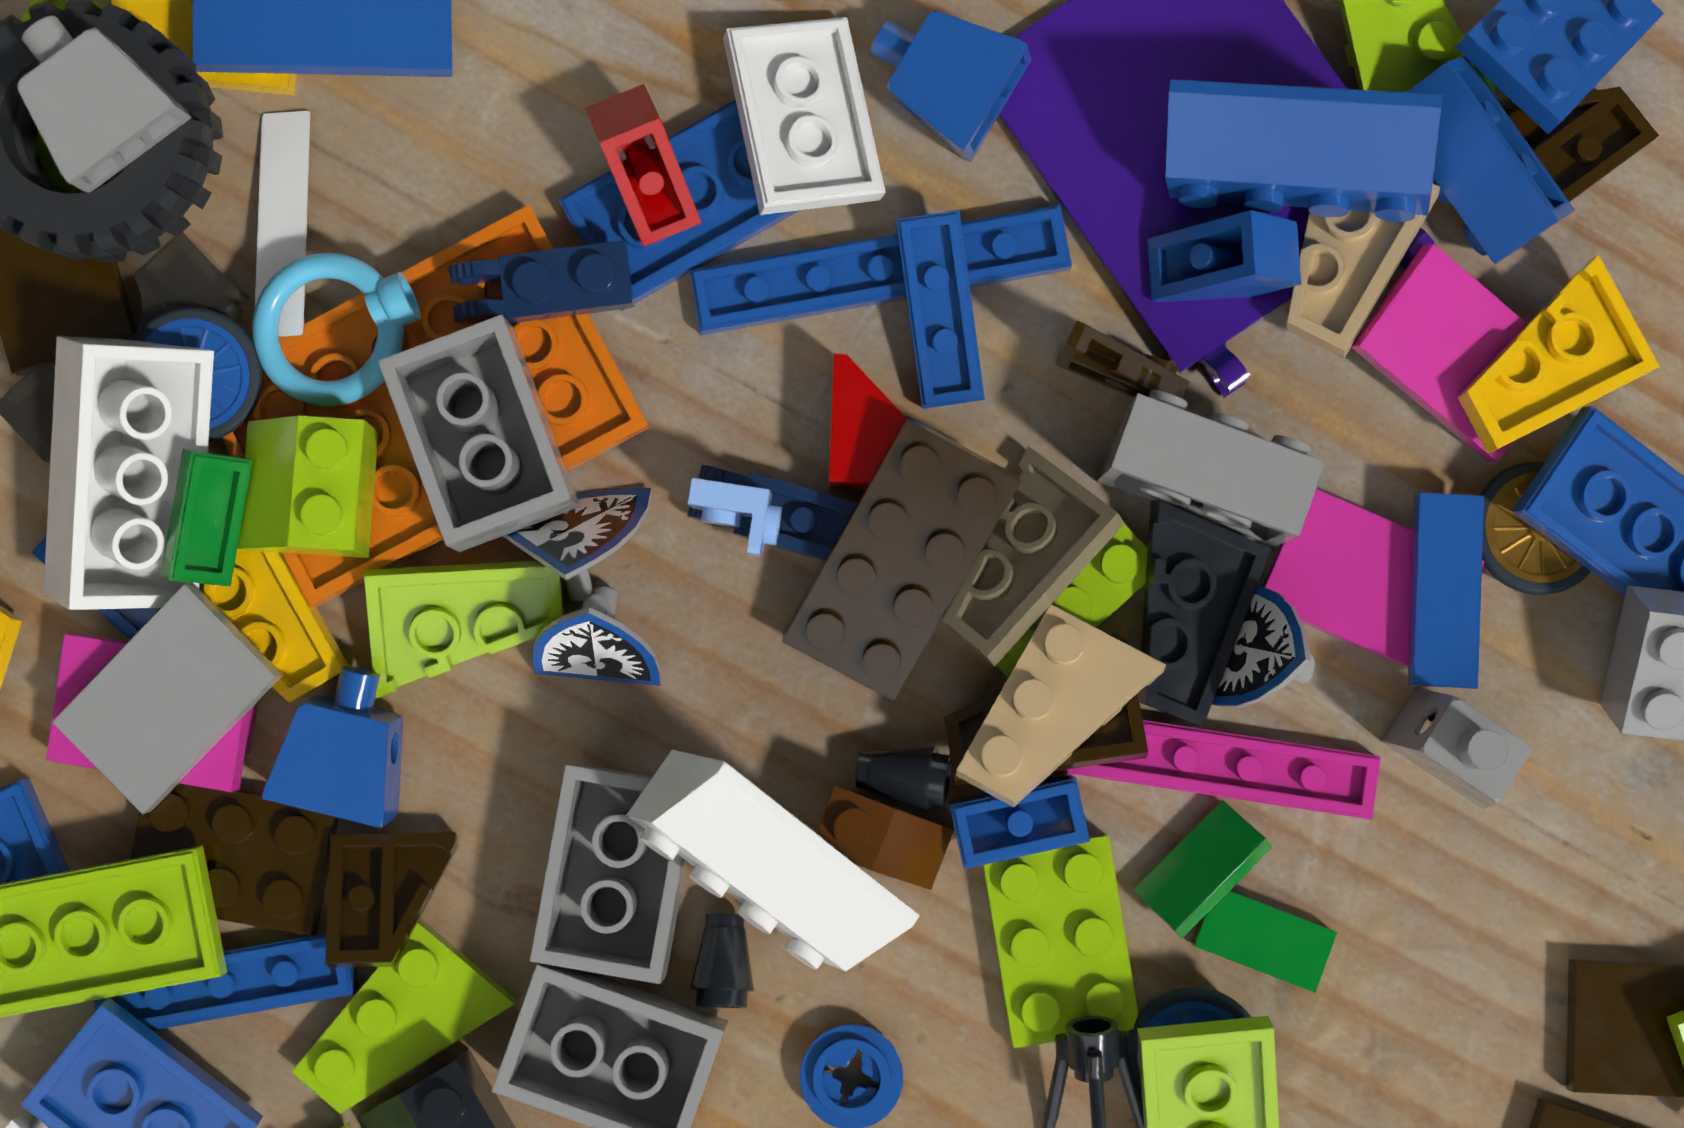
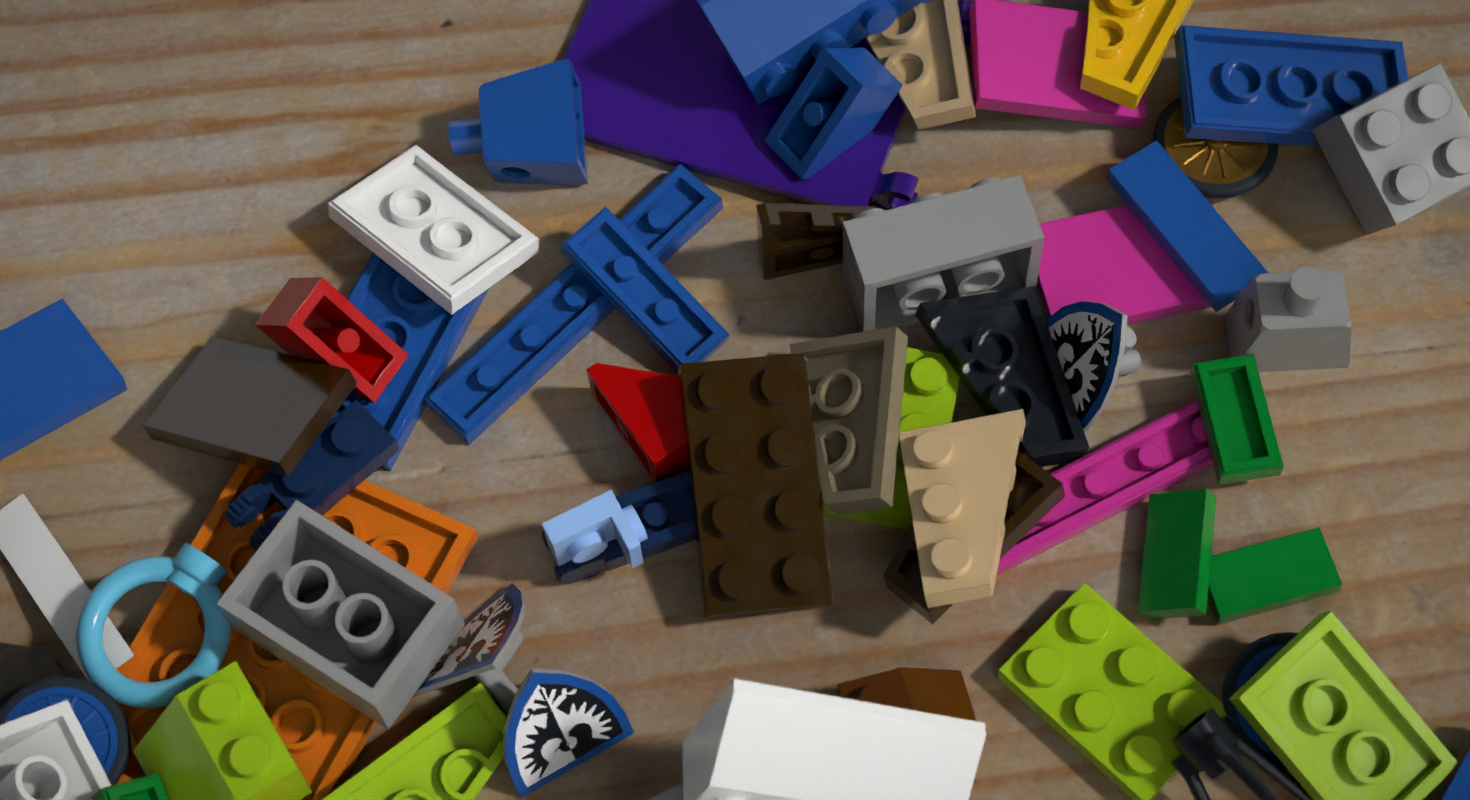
camera: 35 degrees left, 20 degrees down
(536, 178) = (250, 405): none -> dark brown tile
(906, 774) = (890, 645): black cone -> none
(1042, 821) = (1006, 622): blue slope -> none
(1344, 793) = (1236, 419): none -> green tile

